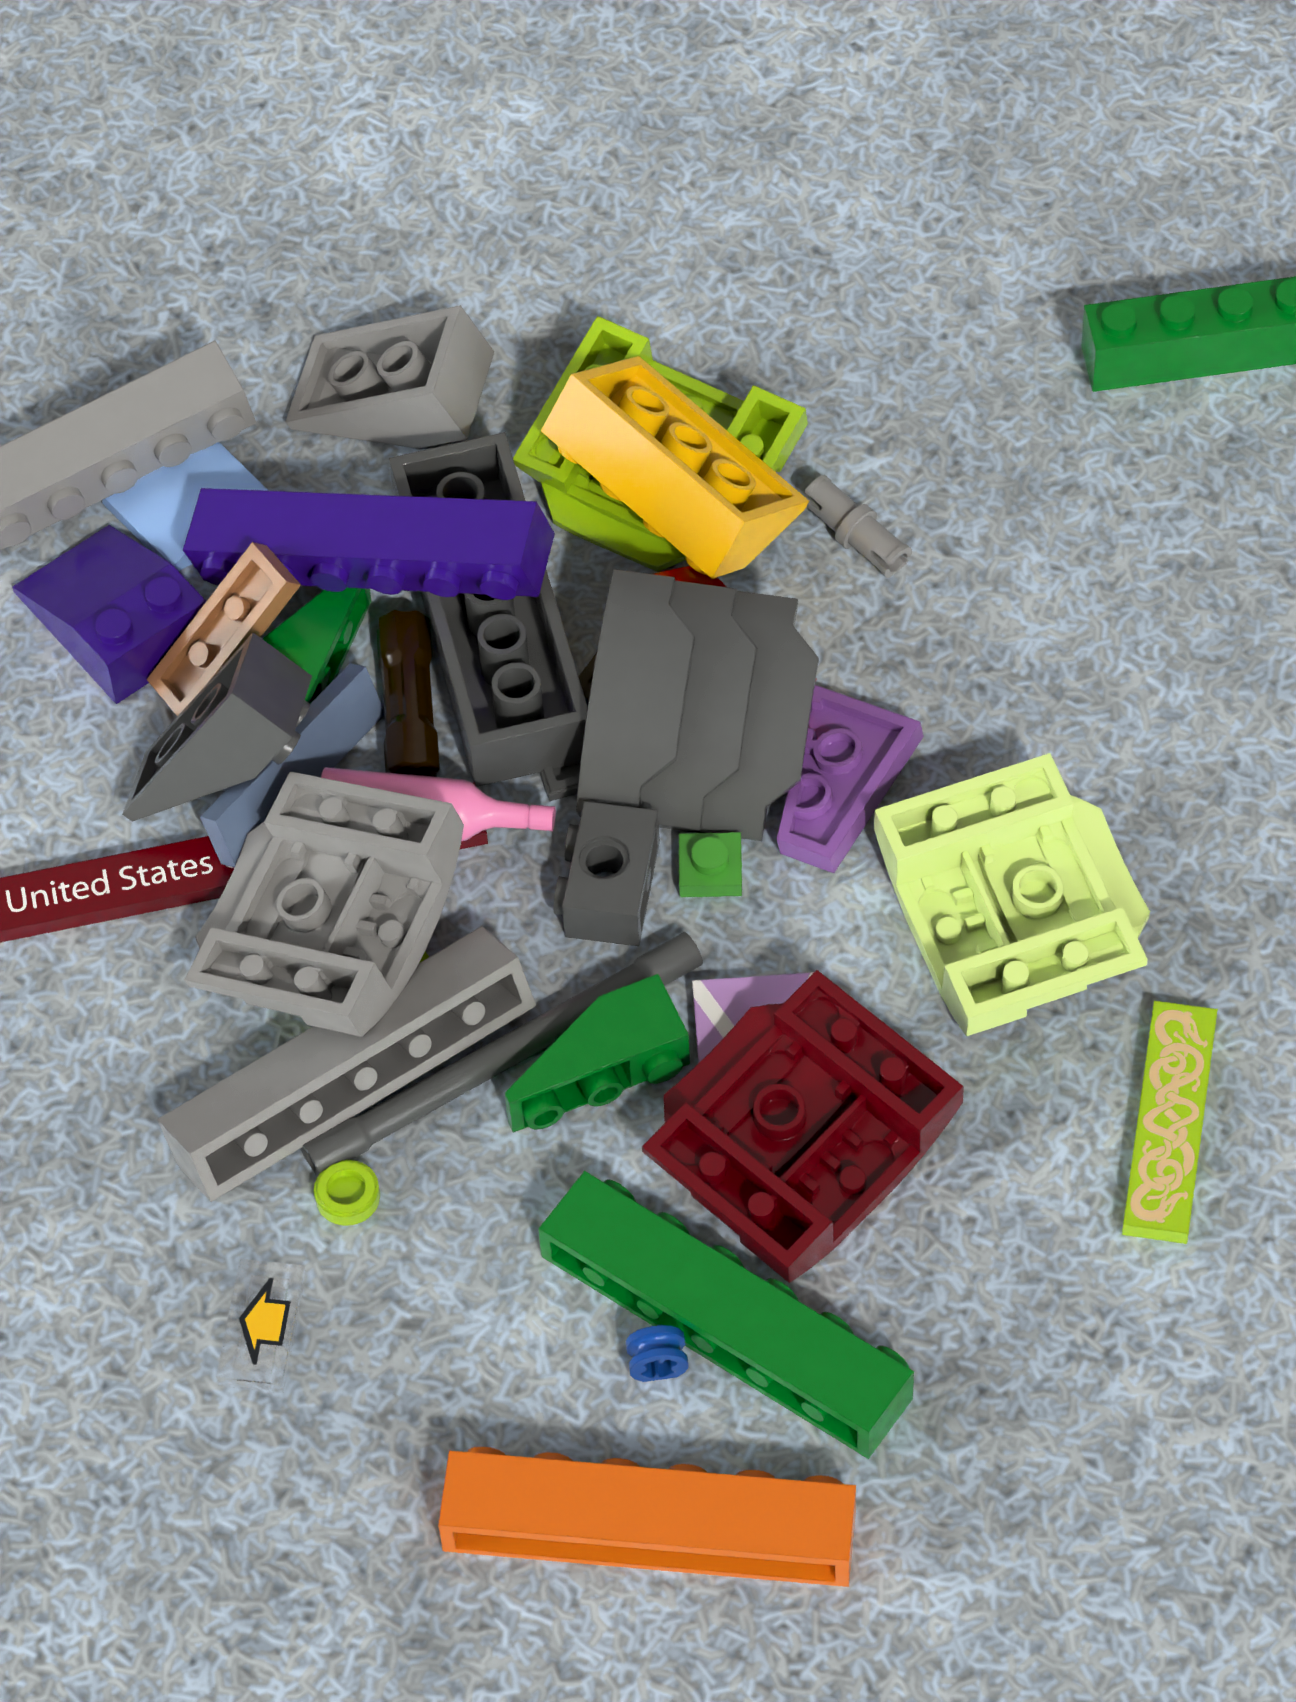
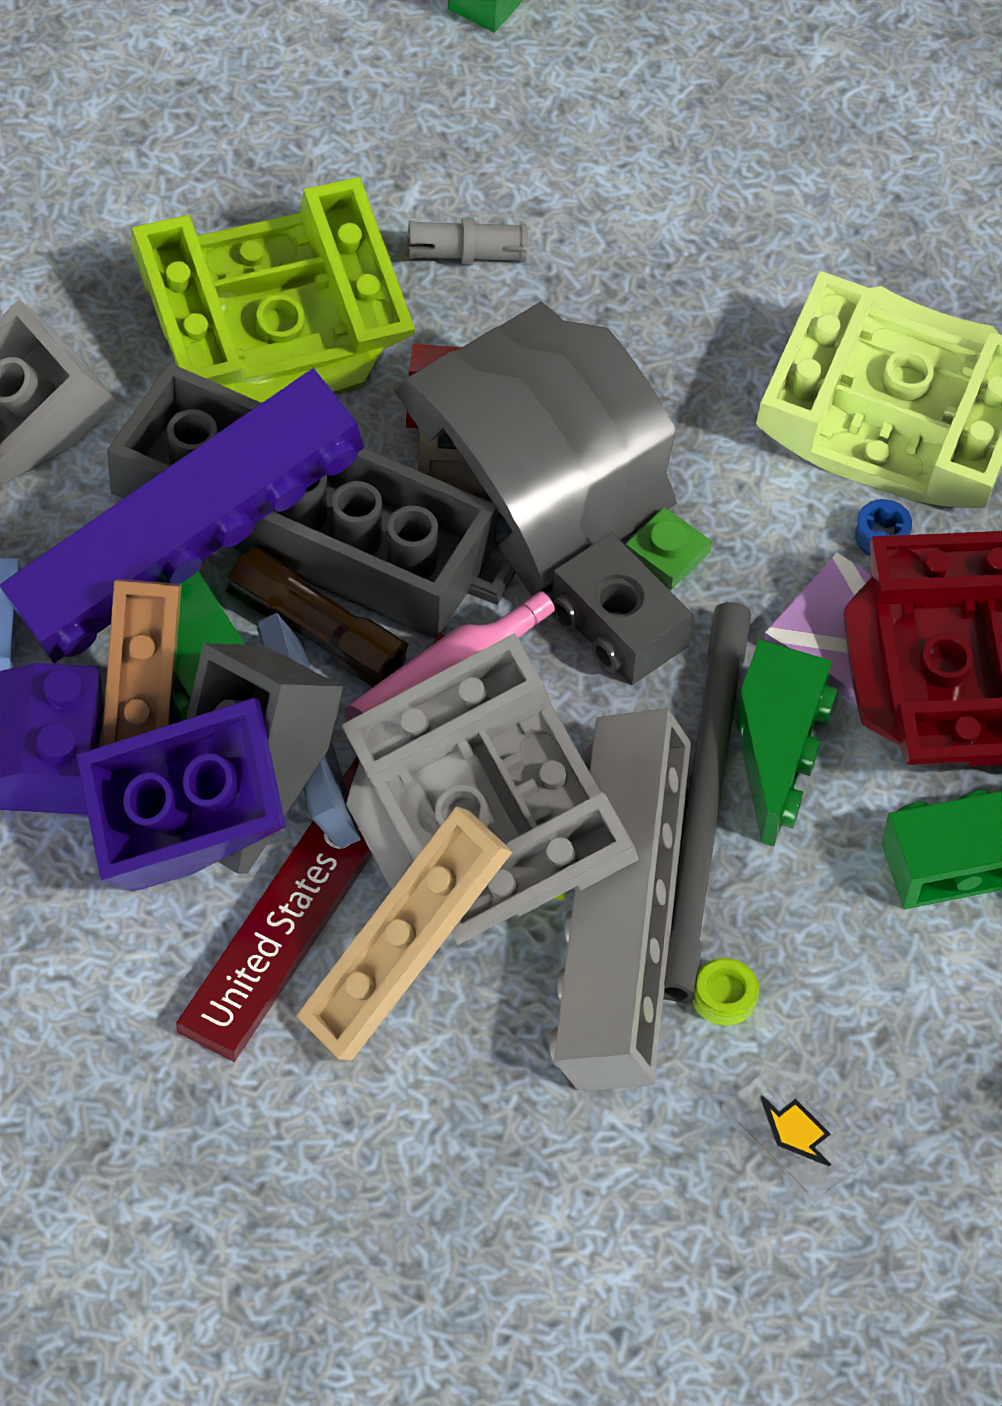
camera: 55 degrees left, 0 degrees up
(127, 723) = (181, 796): none -> dark purple slope
(158, 944) = (403, 934): none -> tan plate
(672, 465) = (325, 289): yellow slope -> none
(846, 771) = (707, 444): medium lavender wing -> none
(880, 968) = (885, 512): none -> blue bush

